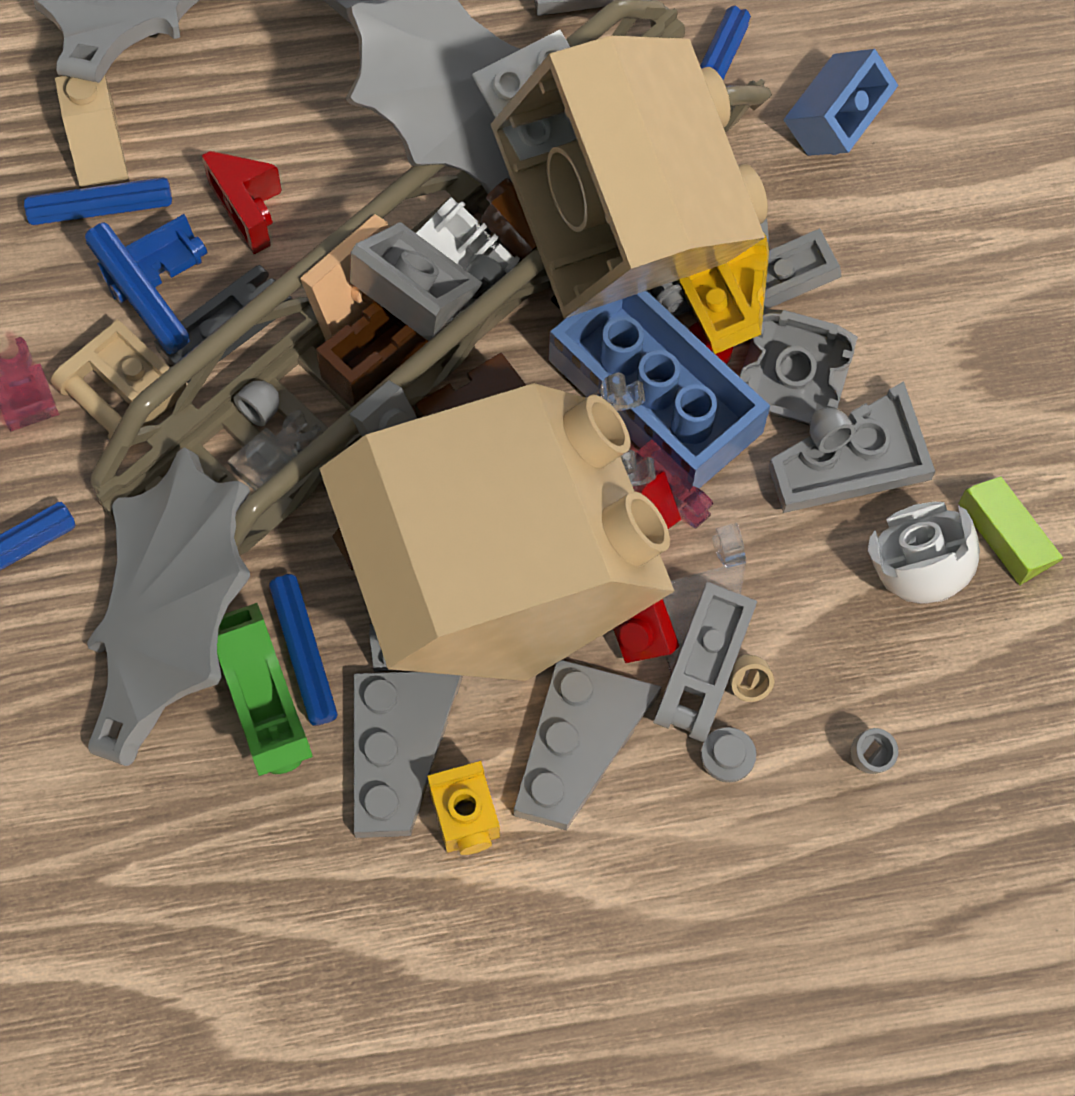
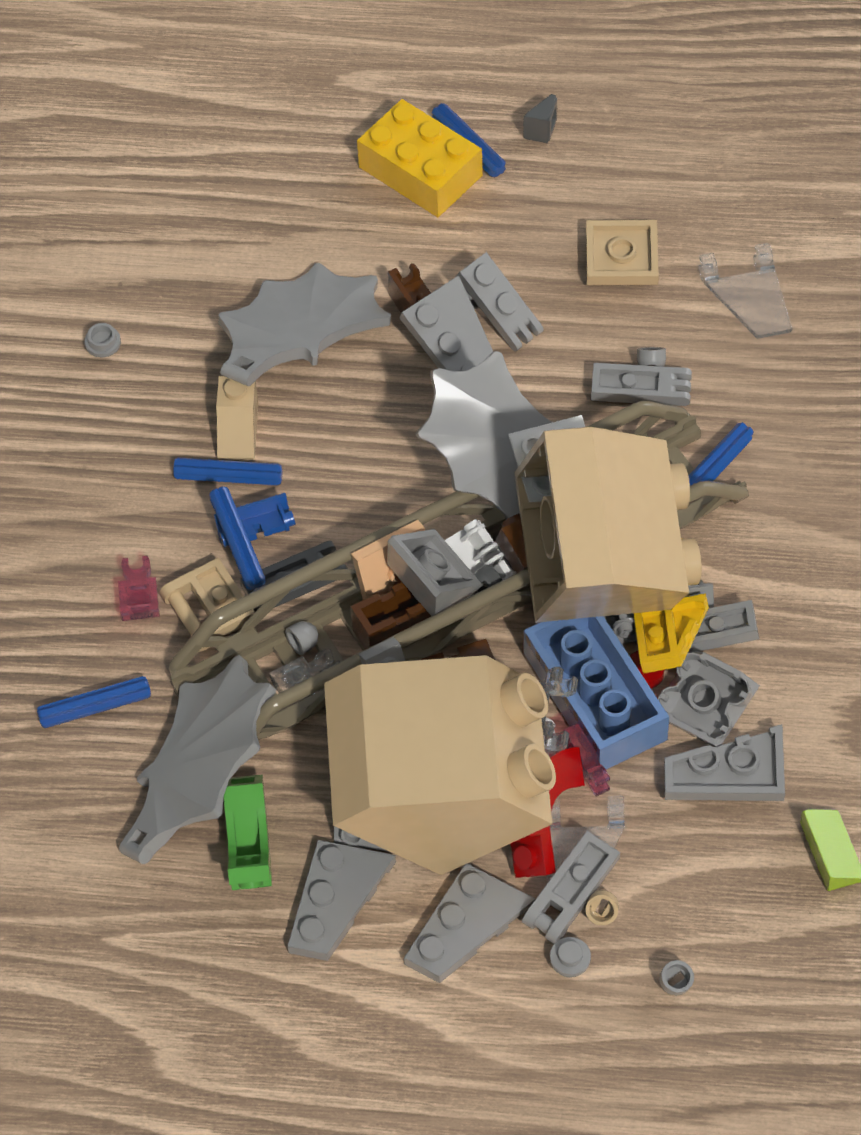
camera: 20 degrees right, 10 degrees down
(242, 189) = (333, 484): red slope -> none
(303, 650) = (287, 816): blue axle -> none
(458, 786) = (372, 933): yellow brick -> none
(831, 429) = (712, 745): light grey hinge -> none
(841, 102) = (799, 511): medium blue brick -> none
(926, 552) = (756, 848): white cylinder -> none

